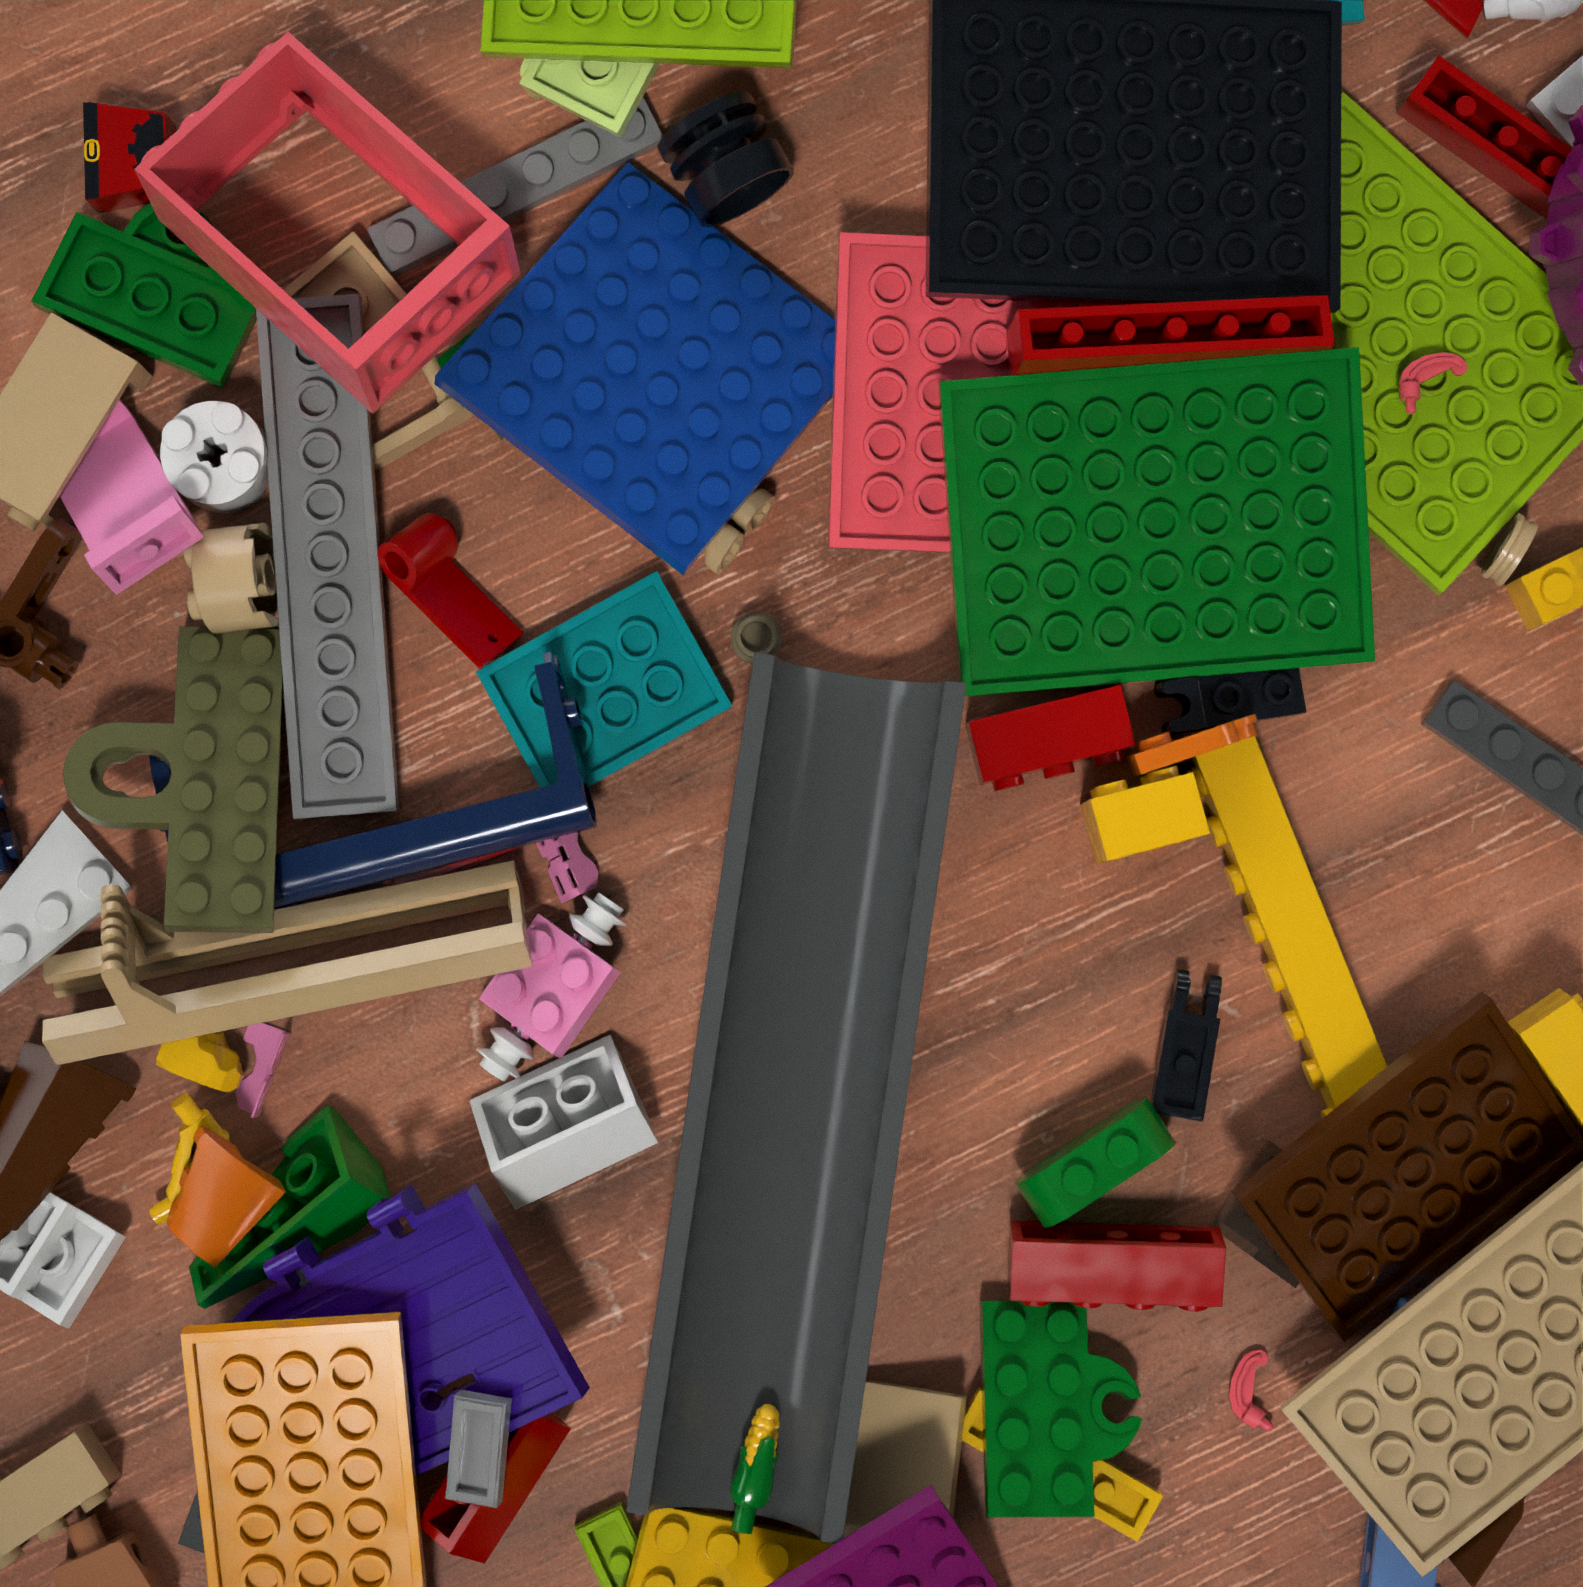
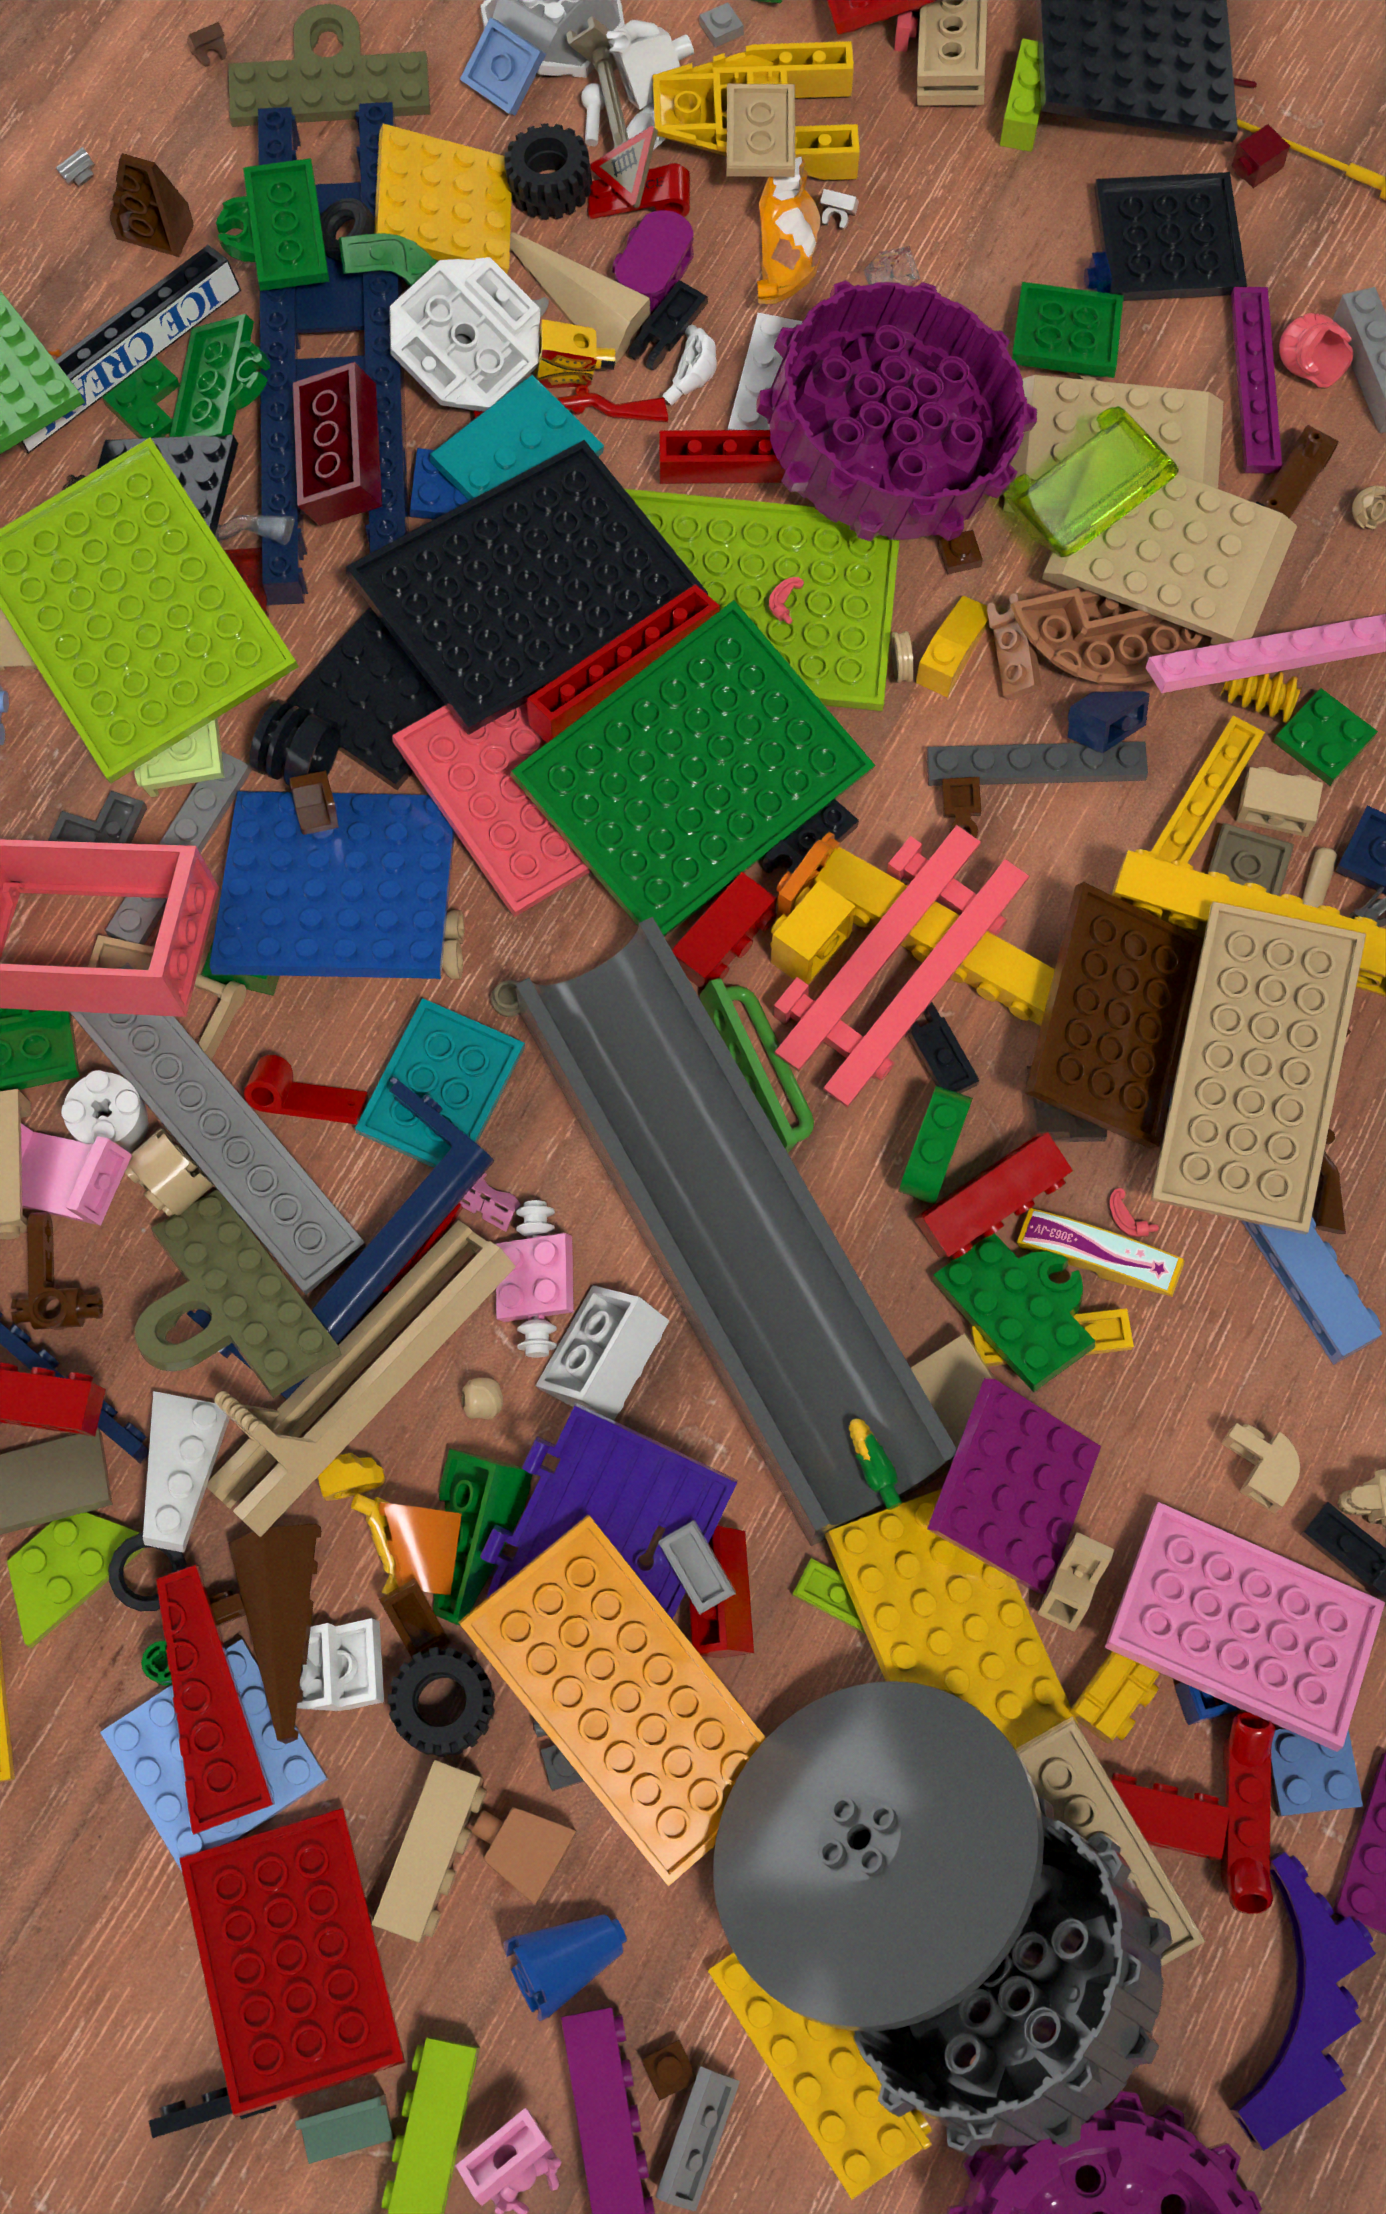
camera: 40 degrees left, 15 degrees down
(85, 1384) = (412, 1681): none -> black tyre
(158, 1265) = (413, 1618): none -> reddish brown slope
(268, 1048) = (387, 1445): bright pink piece -> none
(399, 1077) = (482, 1398): none -> tan piece
(438, 115) = (115, 823): none -> dark grey plate
(695, 249) = (314, 802): none -> reddish brown panel
(854, 150) = (372, 694): none -> black plate
(957, 916) = (719, 1005): none -> bright green piece
(1184, 1413) = (1102, 1251): none -> slope
(1326, 857) = (930, 882): none -> coral fence
(1442, 775) = (962, 801): none -> reddish brown plate

